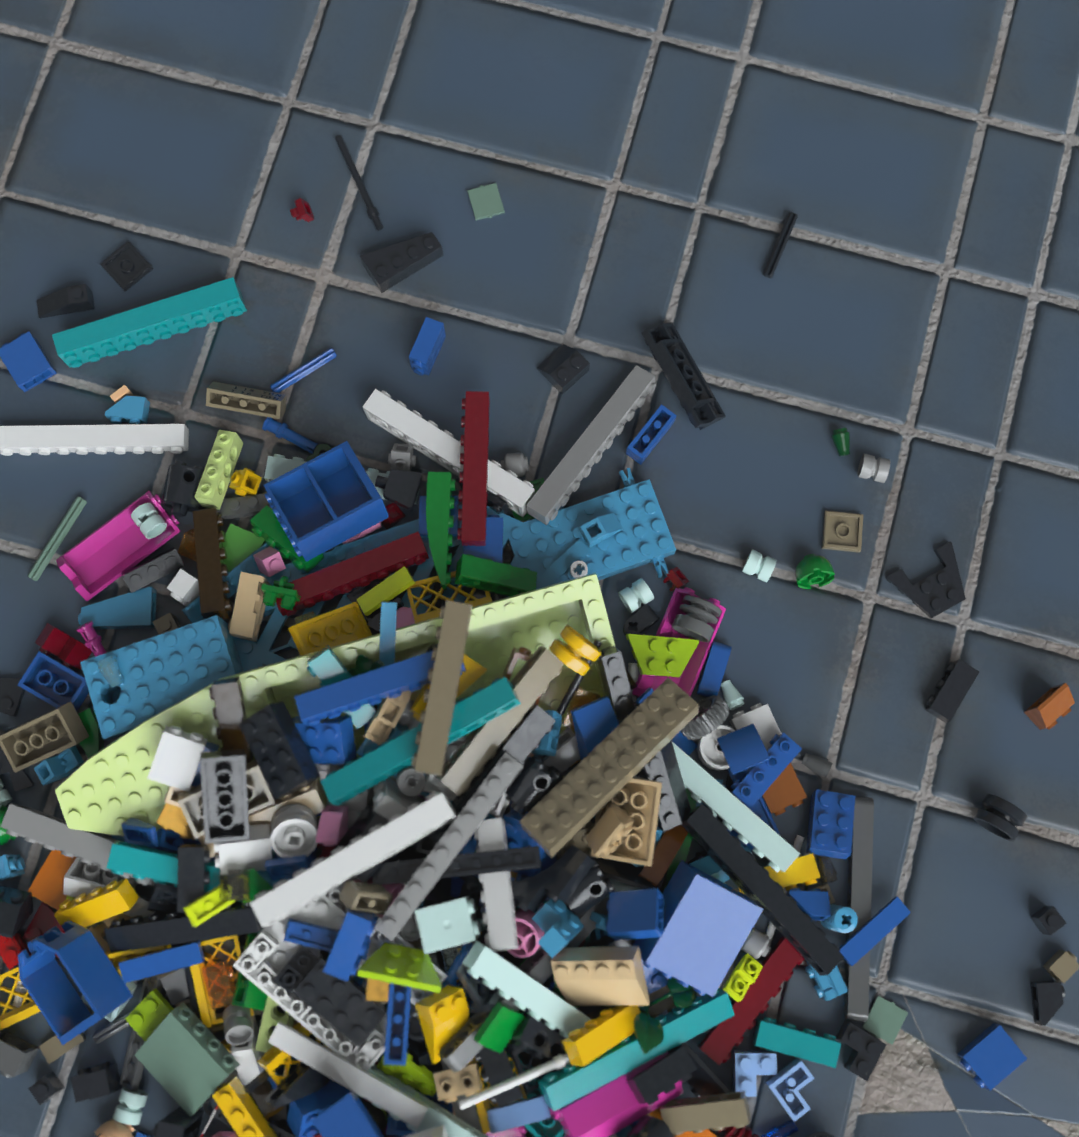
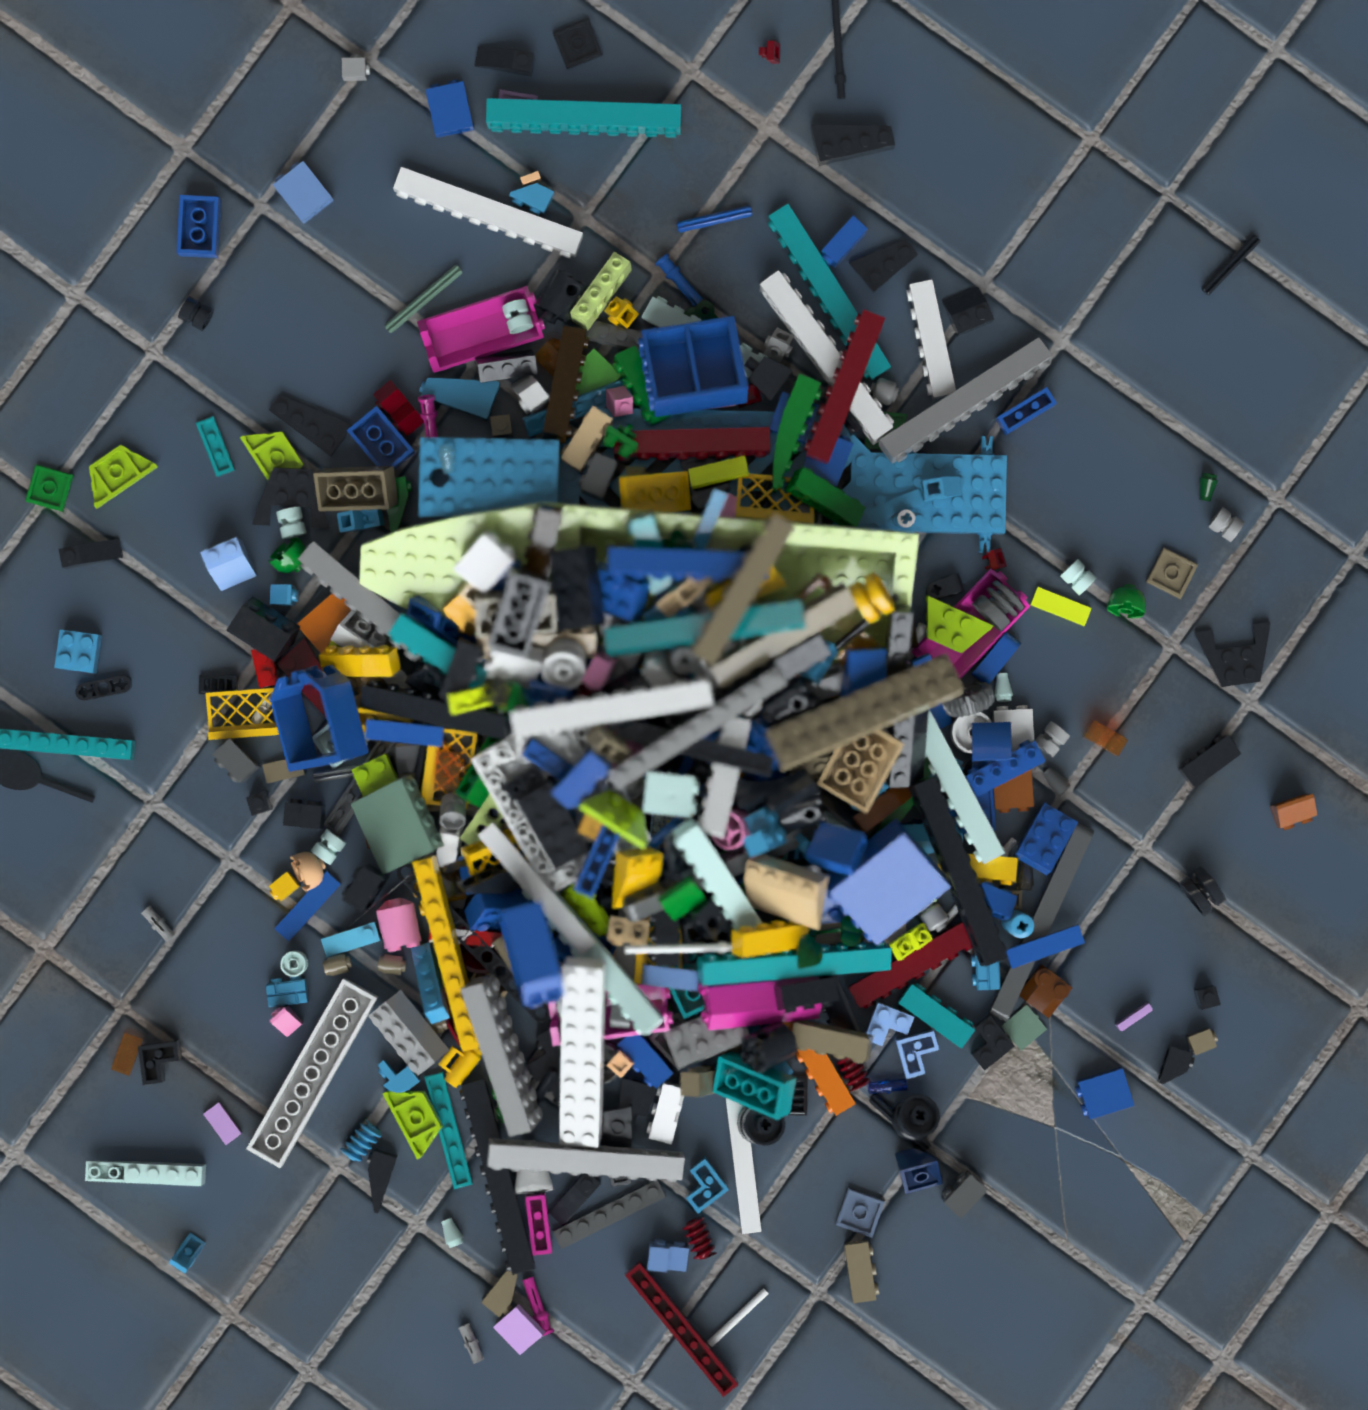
camera: 20 degrees right, 10 degrees up
(246, 400) = (649, 230): dark tan brick -> none
(271, 637) = (598, 477): none -> dark grey brick
(422, 390) = (822, 282): none -> teal brick
(471, 355) = (883, 264): none -> black wing
(486, 201) = (956, 108): sand green piece -> none
(540, 403) = (932, 339): none -> white brick
(609, 830) = (840, 768): tan slope -> none
(636, 595) = (950, 561): light aqua wheel -> none
(683, 375) = (1081, 362): black slope -> none
(753, 599) = (1060, 606): none -> neon yellow tile
(797, 725) = (1051, 739): none -> light grey wheel
(846, 706) = (1105, 738): none -> clear orange brick
(891, 974) = (1045, 991): none -> reddish brown slope
(987, 967) = (1134, 1016): none -> lavender tile

